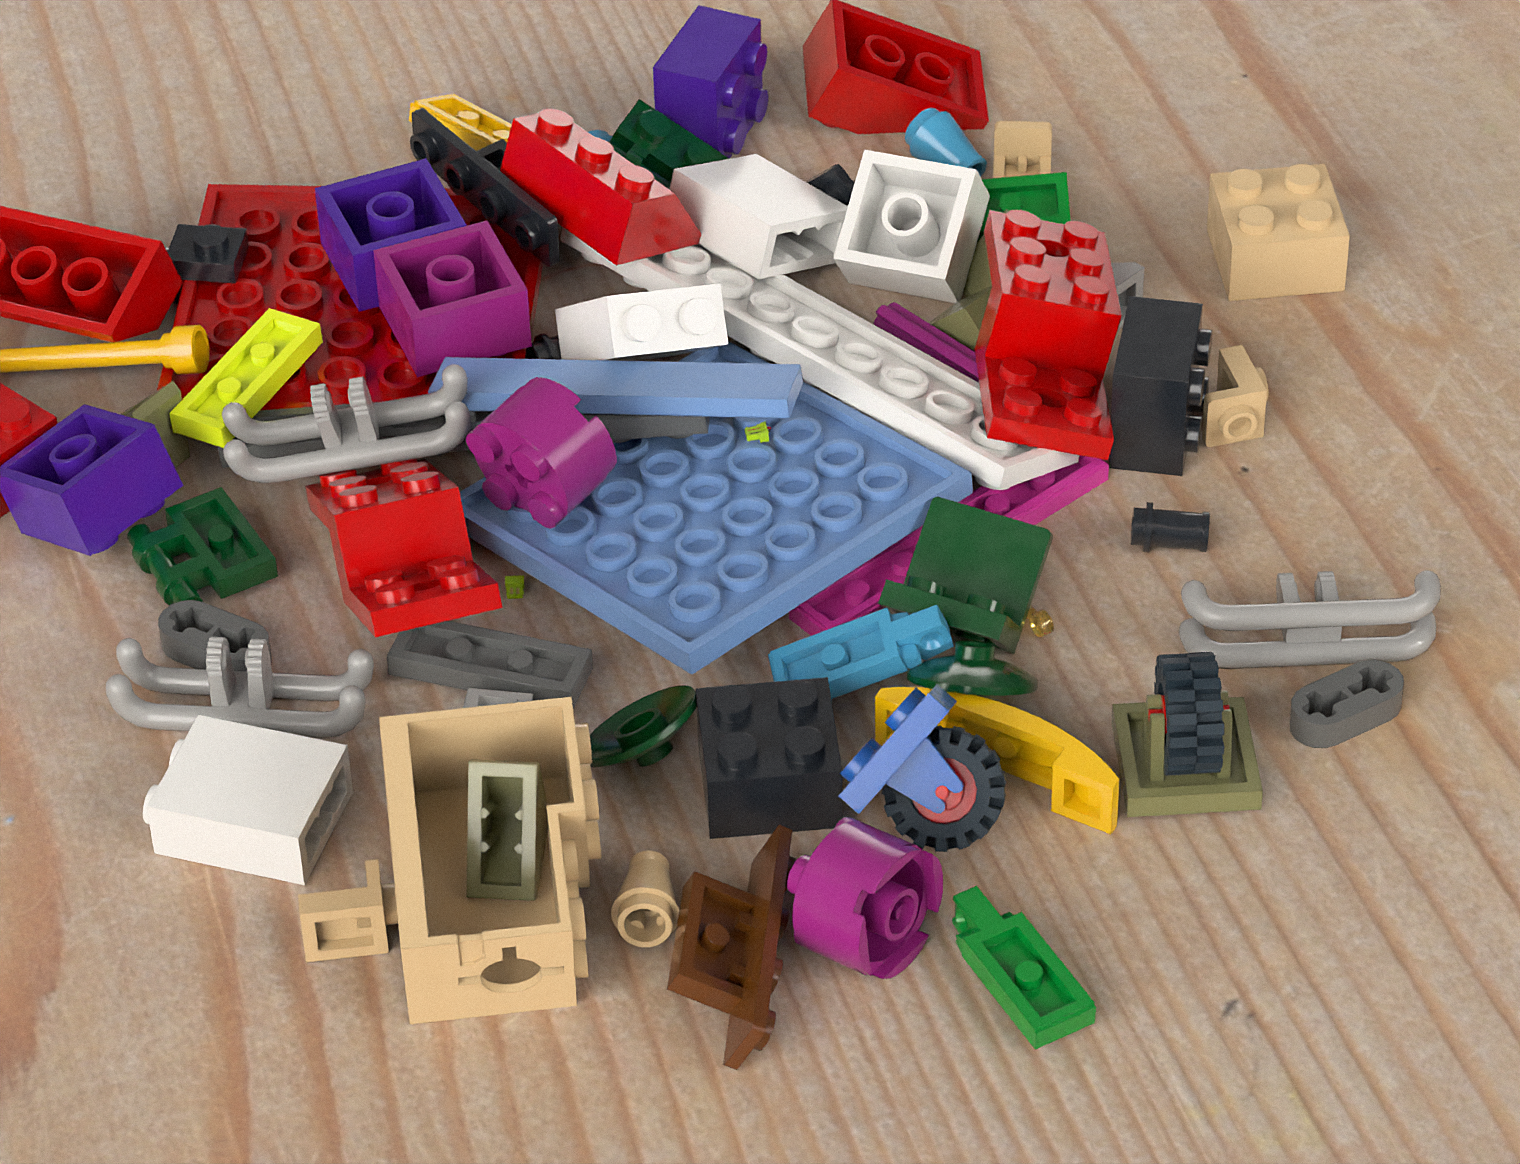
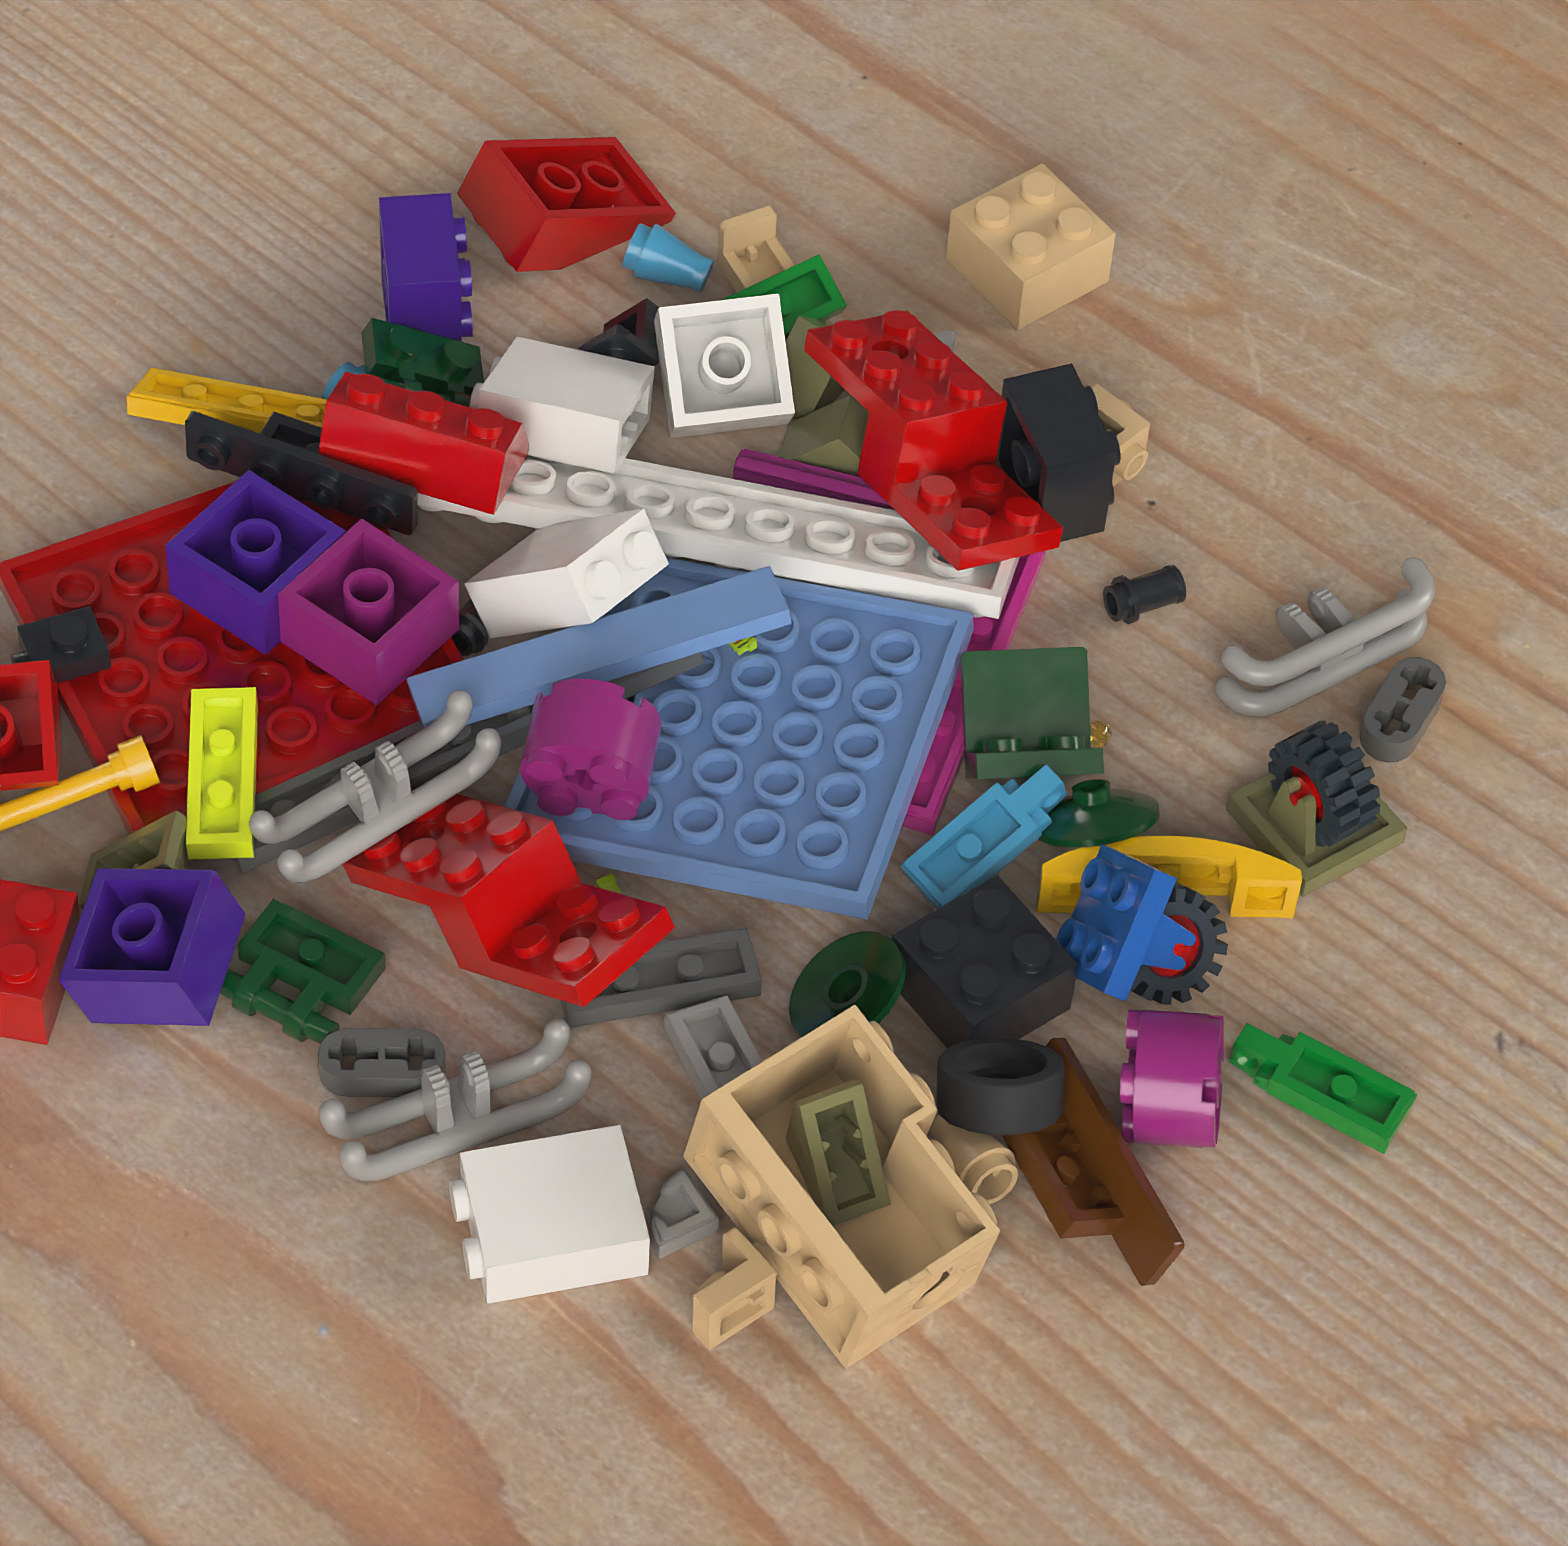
camera: 35 degrees left, 10 degrees up
(366, 842) = (680, 1215): none -> light grey tile
(700, 842) = (1000, 1086): none -> black tyre

